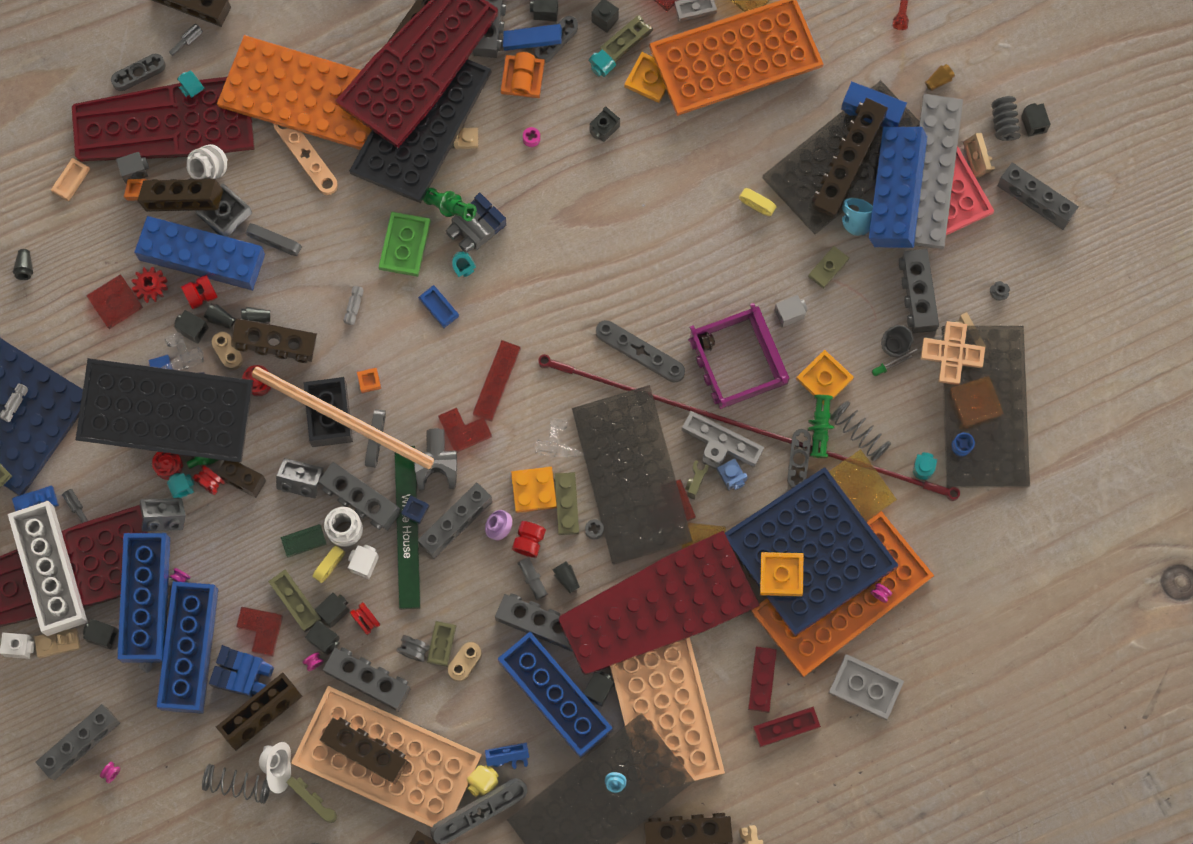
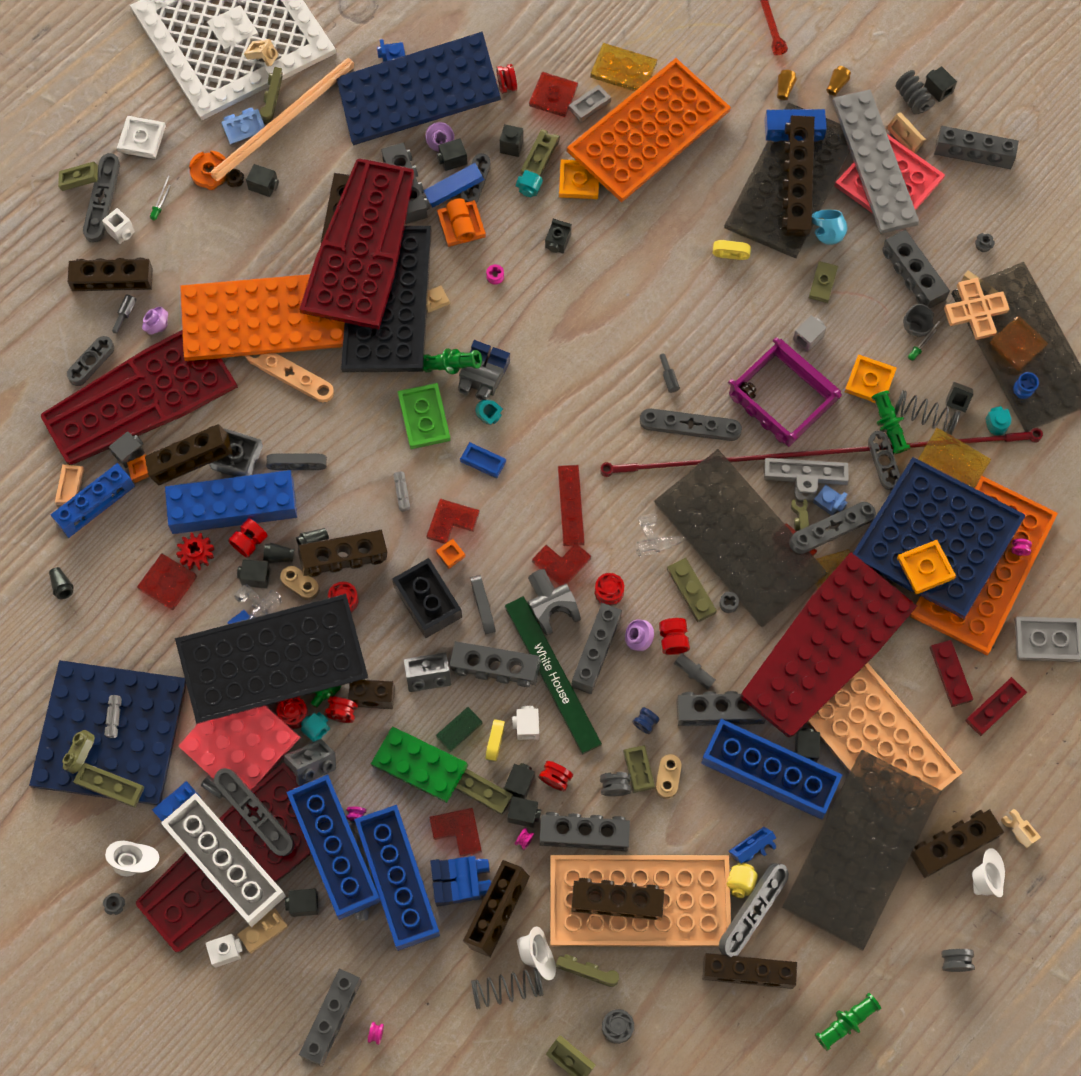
camera: 25 degrees left, 5 degrees down
(82, 201) = (92, 500): none -> blue brick
(87, 521) = (268, 828): none -> dark grey piece
(108, 477) = (244, 742): none -> coral plate
(189, 84) = (149, 349): teal plate -> none
(207, 162) = (199, 414): white piece -> none
(209, 58) = (155, 320): none -> lavender plate
(253, 557) = (419, 764): none -> green plate
(340, 515) = (490, 686): white piece -> none
(343, 418) = (447, 595): light nougat axle -> none
(382, 345) = (449, 515): none -> clear red plate
(415, 509) = (554, 653): dark blue plate -> none
(467, 603) = (646, 720): none -> dark blue wheel
(493, 472) = (609, 589): none -> red wheel
(533, 489) = (654, 590): light orange plate -> none
(566, 576) = (724, 655): pearl dark grey cone -> none
(615, 782) = (871, 823): medium azure plate -> none
(643, 295) = (669, 375): none -> dark grey axle
(698, 501) = (817, 535): none -> dark grey piece
(888, 61) = (785, 84): none -> pearl gold cone
(897, 429) = (959, 397): none -> pearl dark grey brick
(898, 187) = (854, 185): blue brick -> none

